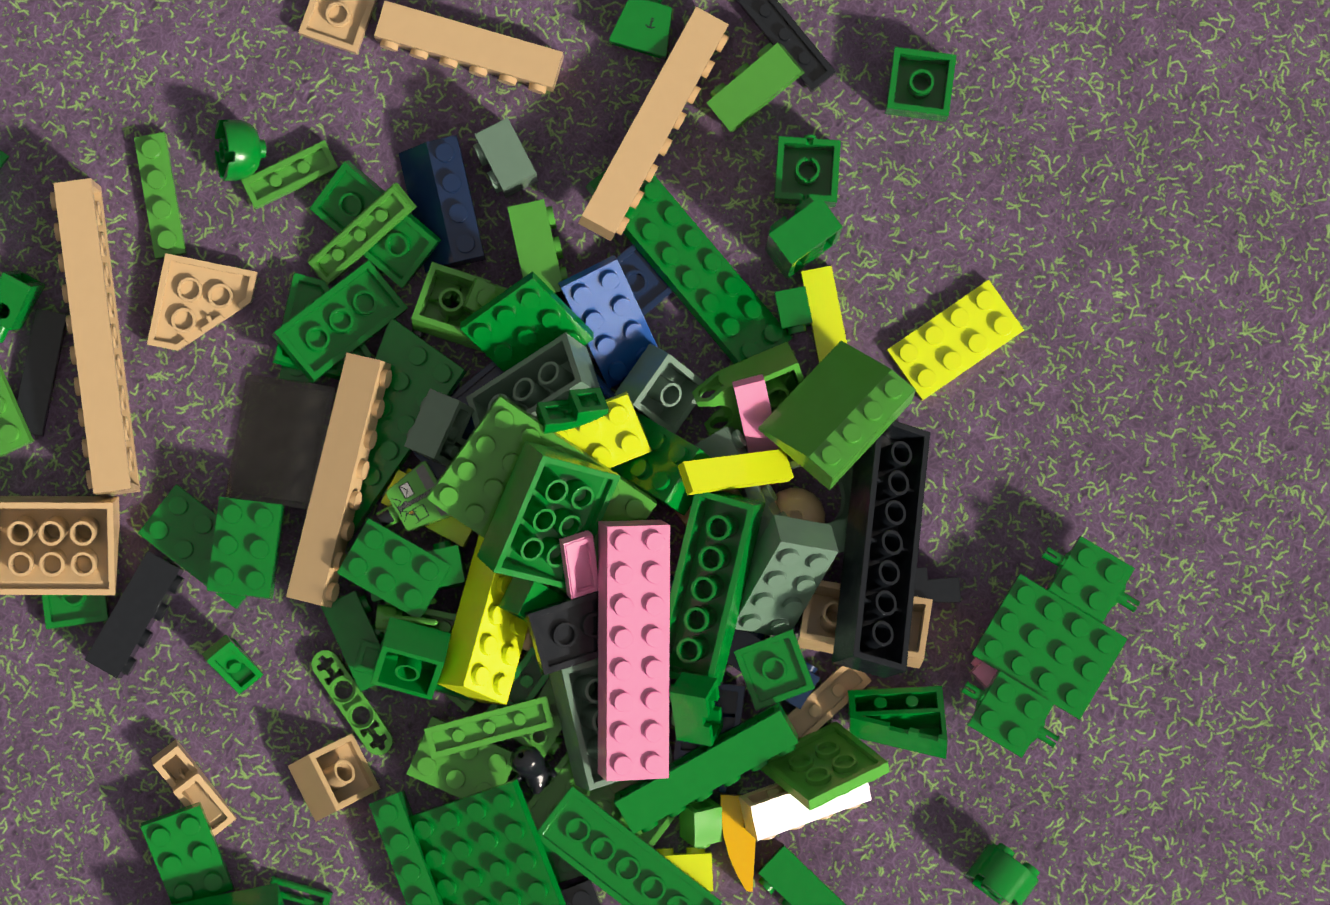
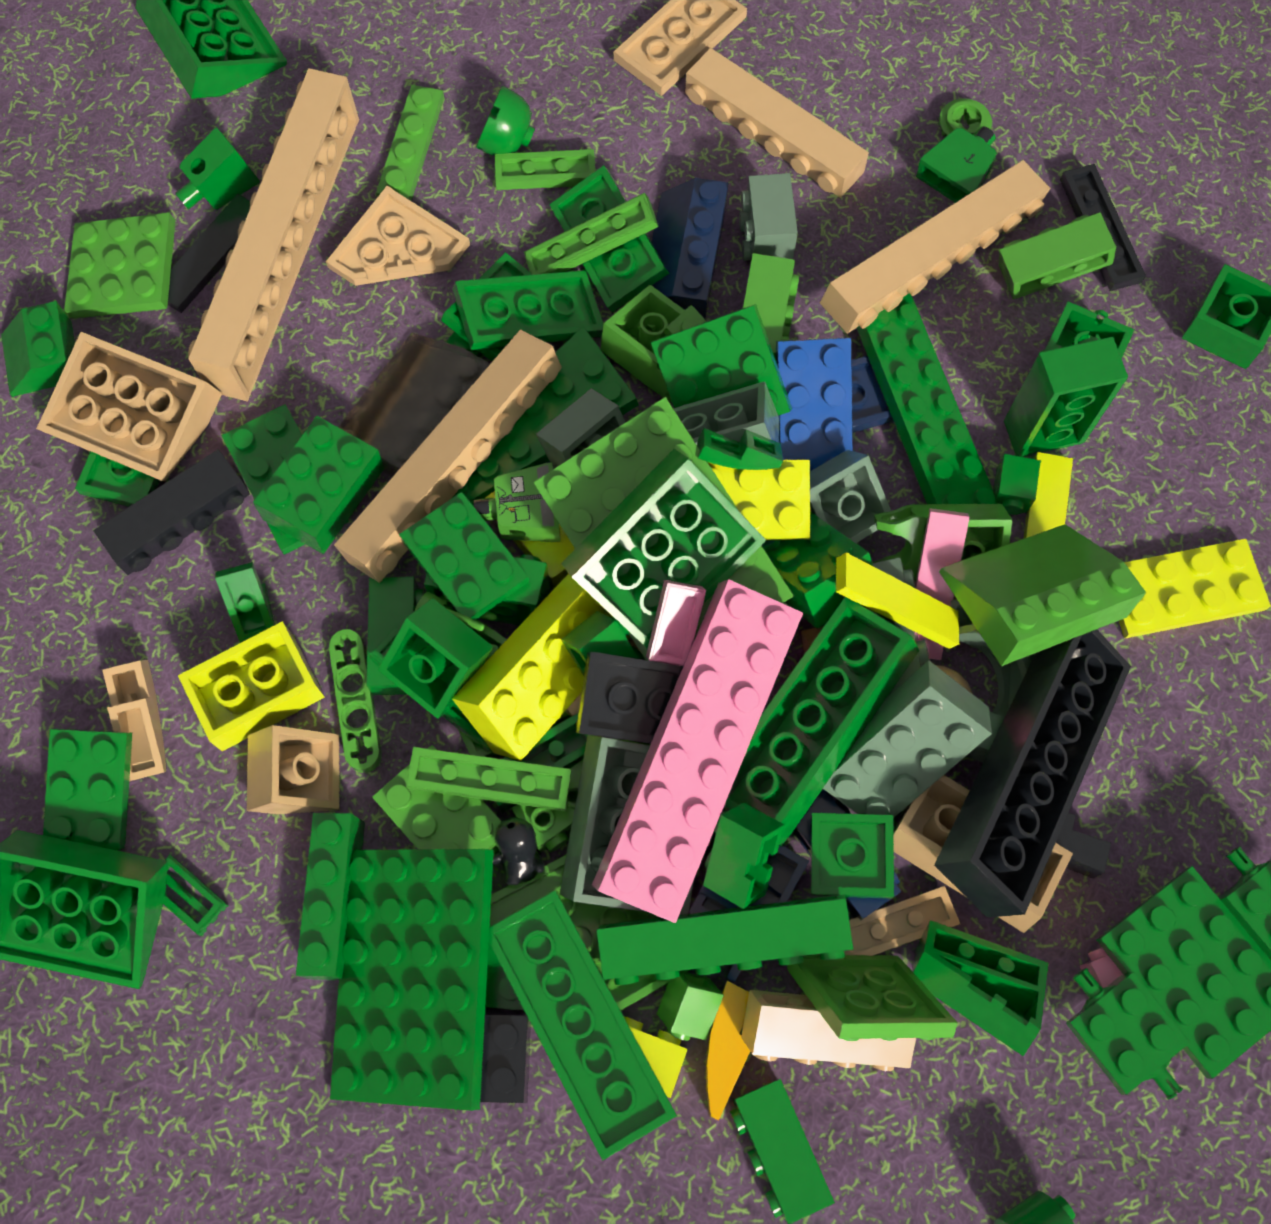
camera: 25 degrees right, 15 degrees down
(272, 728) = (251, 686): none -> neon yellow brick

